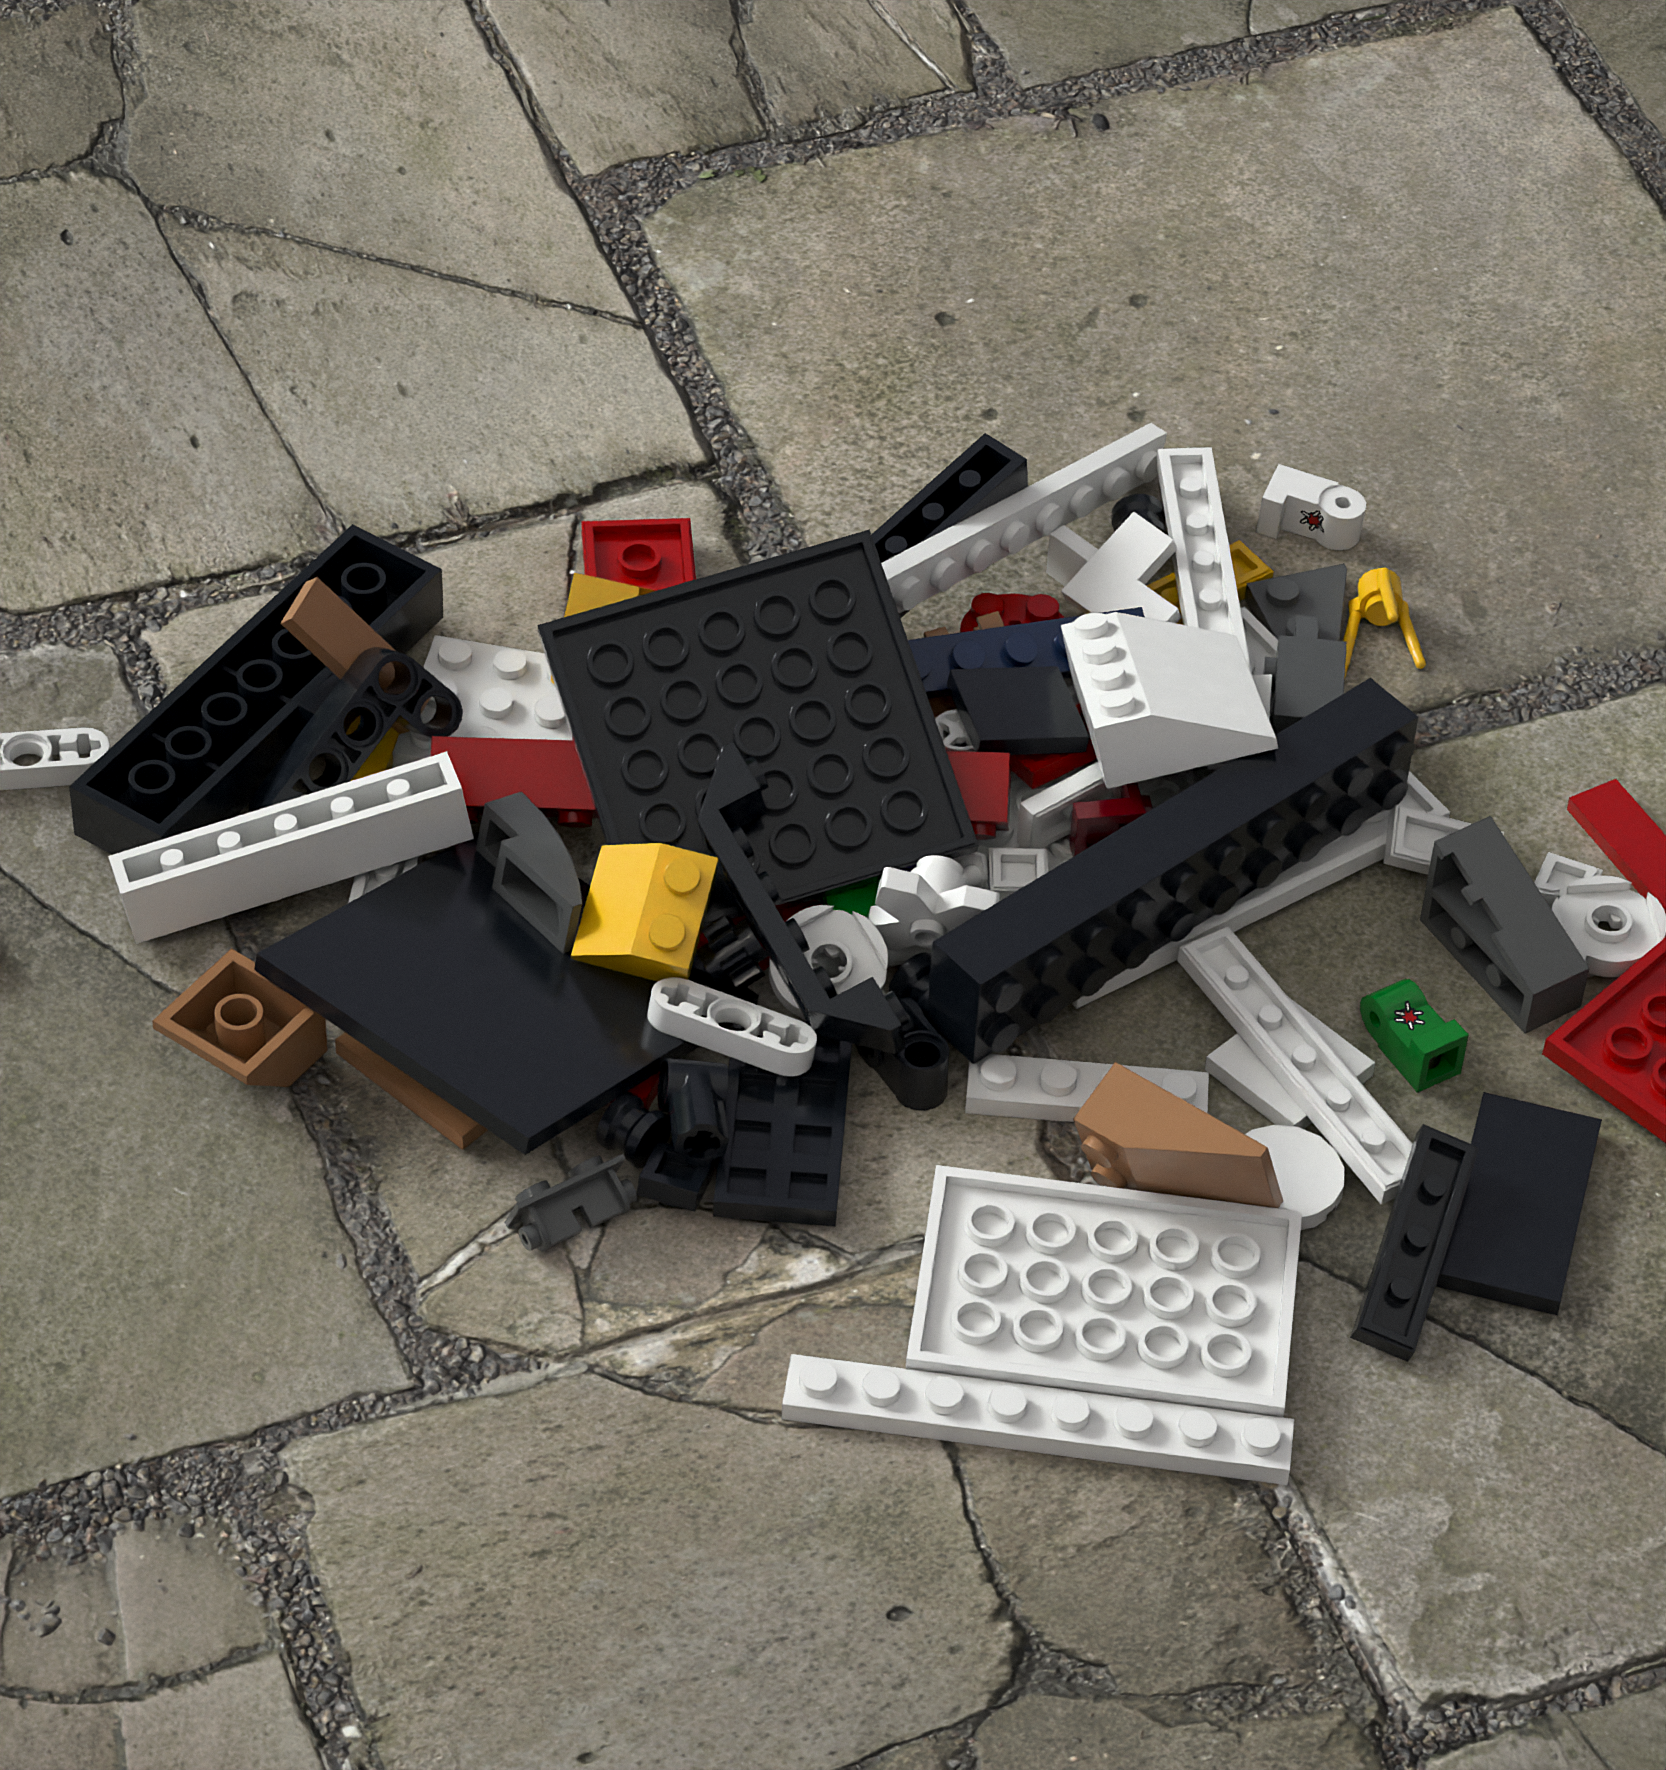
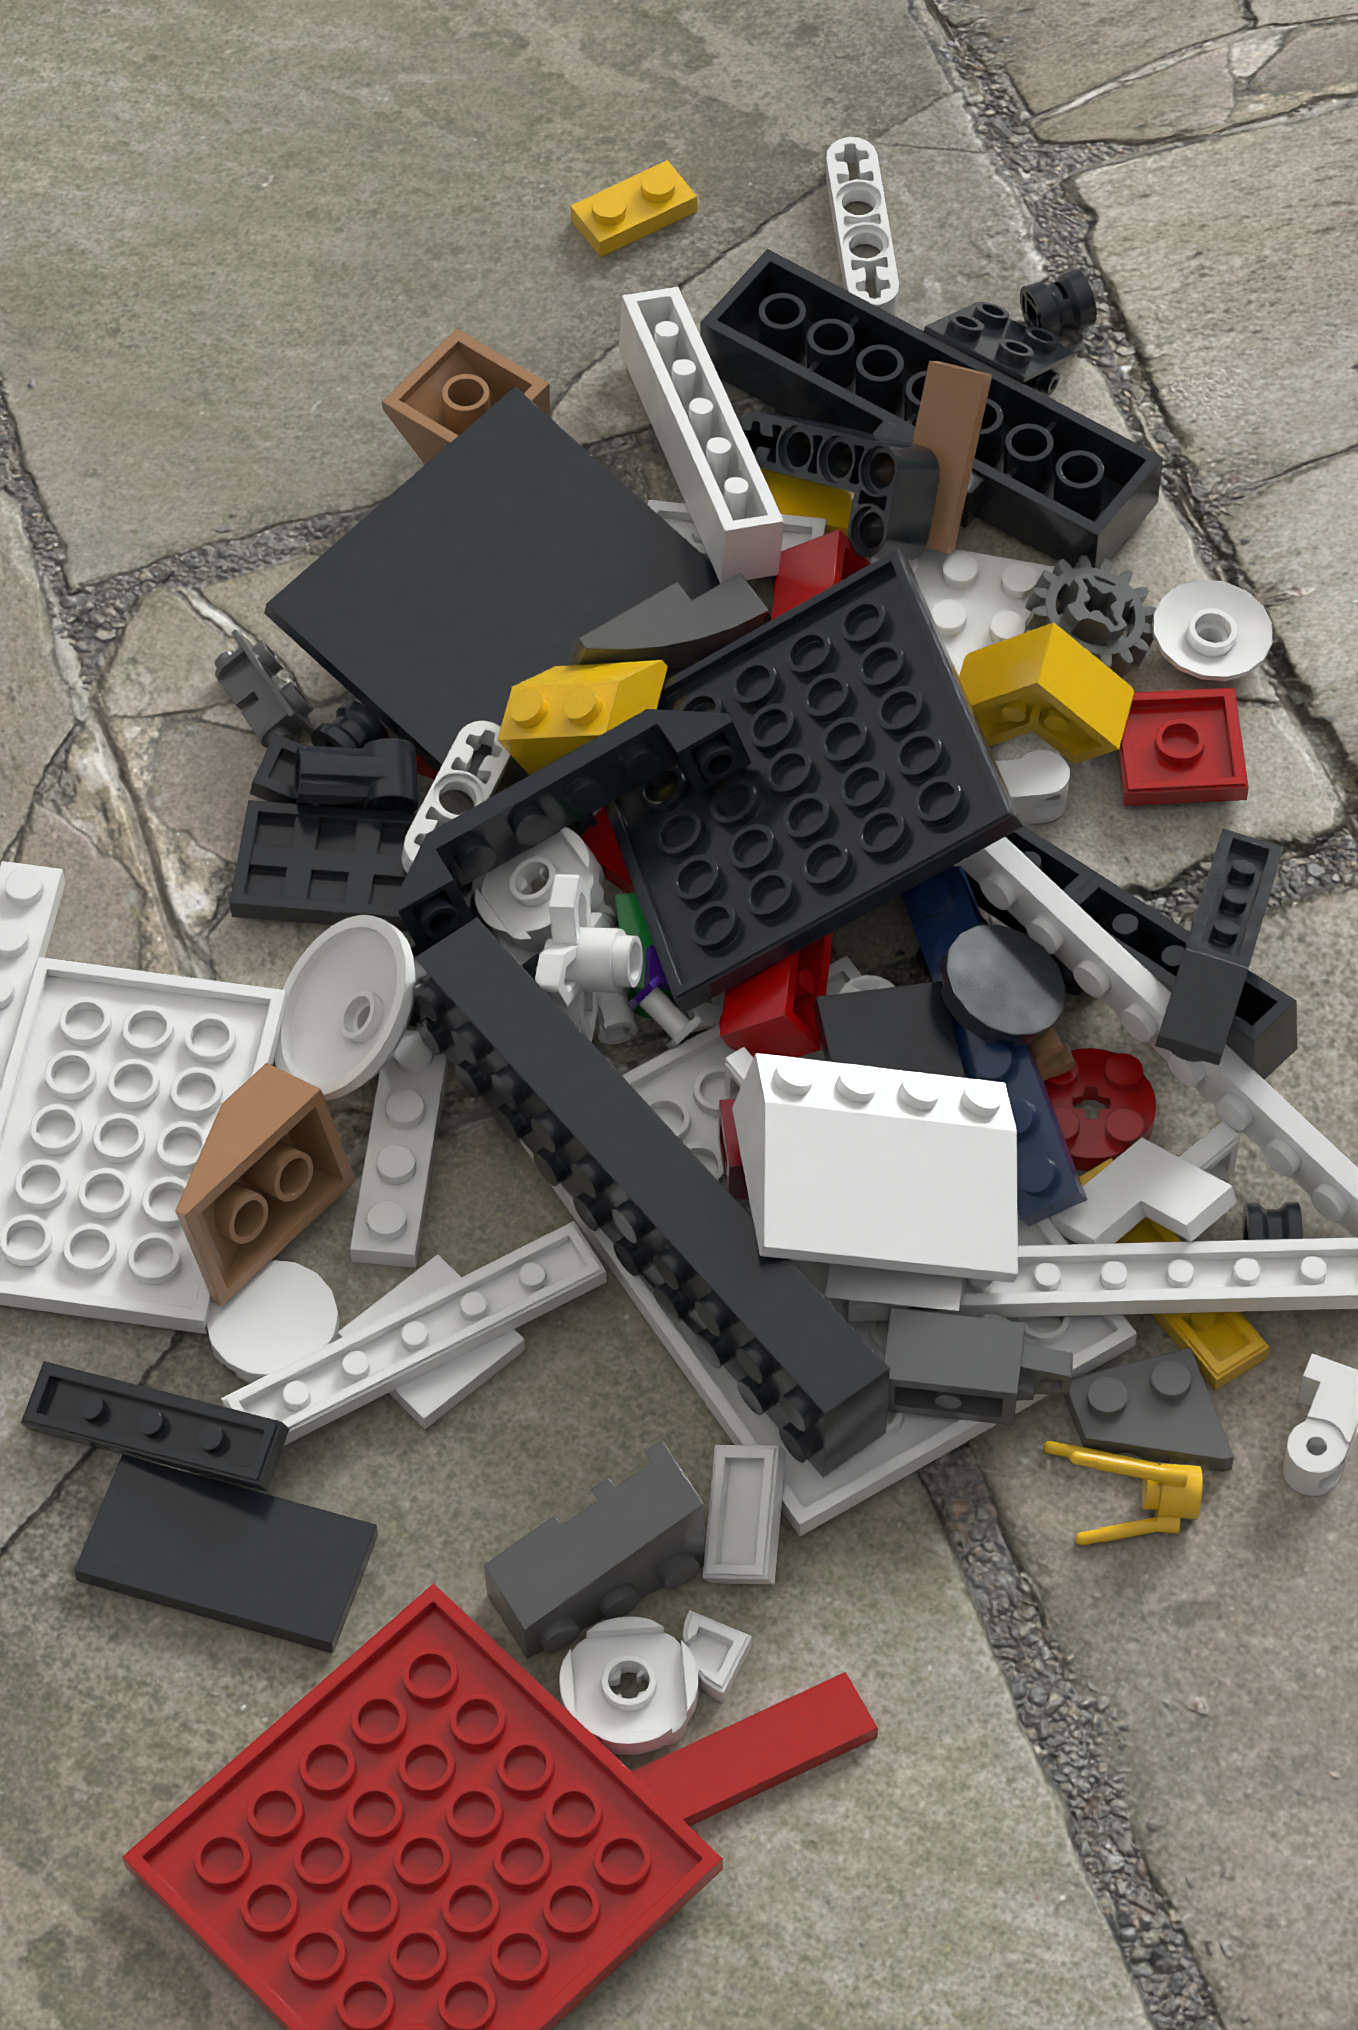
camera: 95 degrees right, 10 degrees up
(122, 618) = (1059, 304): none -> black wheel
(178, 649) = (1004, 344): none -> black hinge
(502, 605) = (1095, 611): none -> dark grey gear
(517, 531) = (1213, 613): none -> white dish
(958, 621) = (1001, 985): none -> tile
(1013, 472) = (1219, 948): none -> black slope
(1014, 868) = (682, 1073): white tile -> none
(1016, 1088) = (347, 1005): none -> white dish
(1413, 1034) = (465, 1460): green leg -> none

